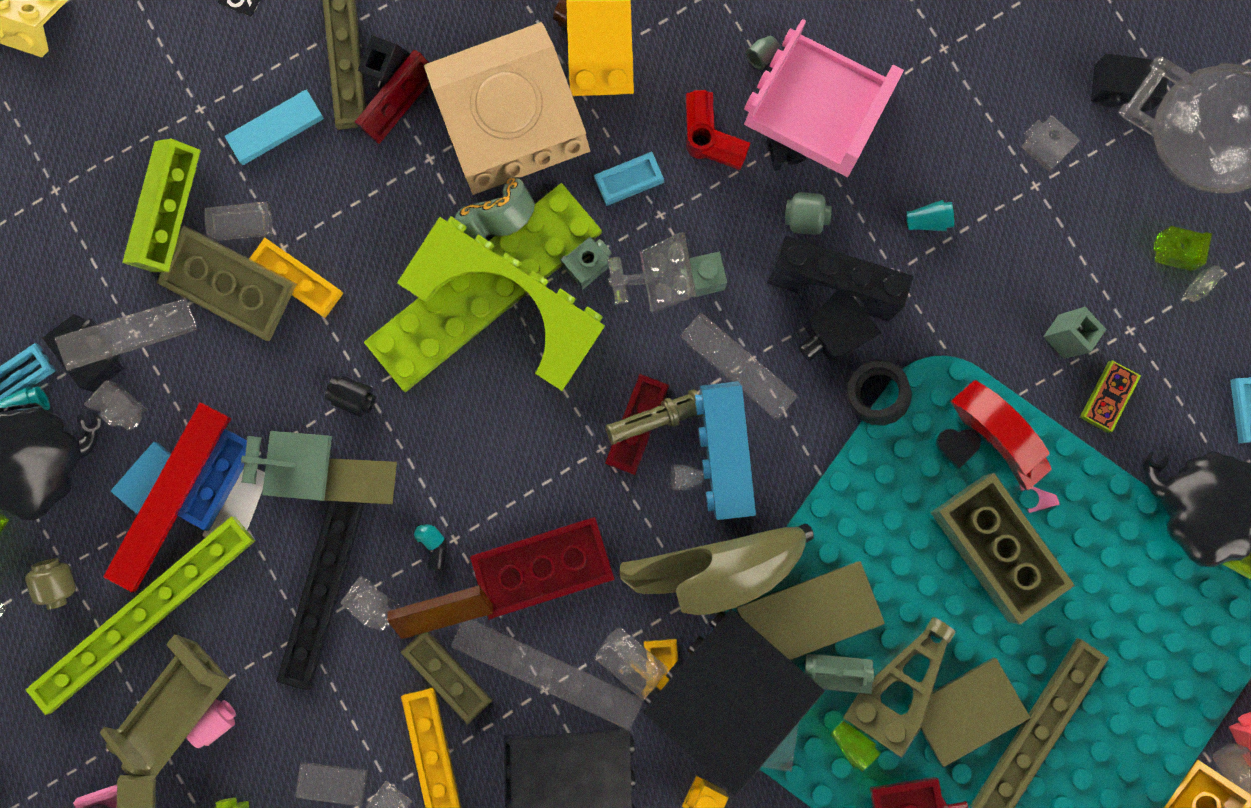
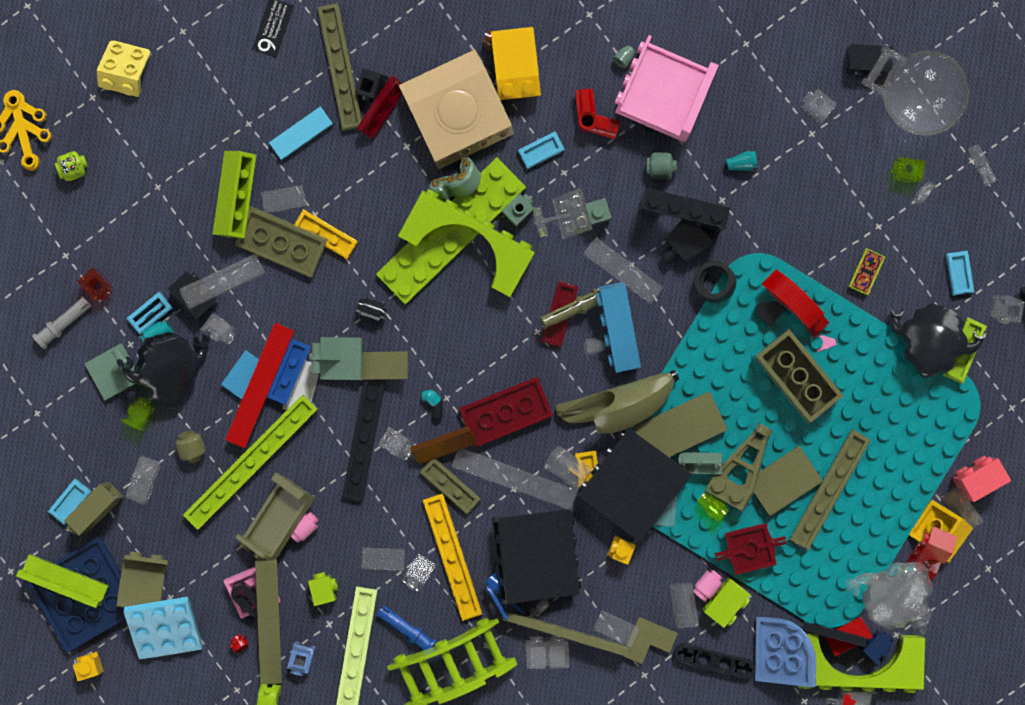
camera: 10 degrees left, 5 degrees up
(1074, 333) = (839, 233): sand green brick -> none

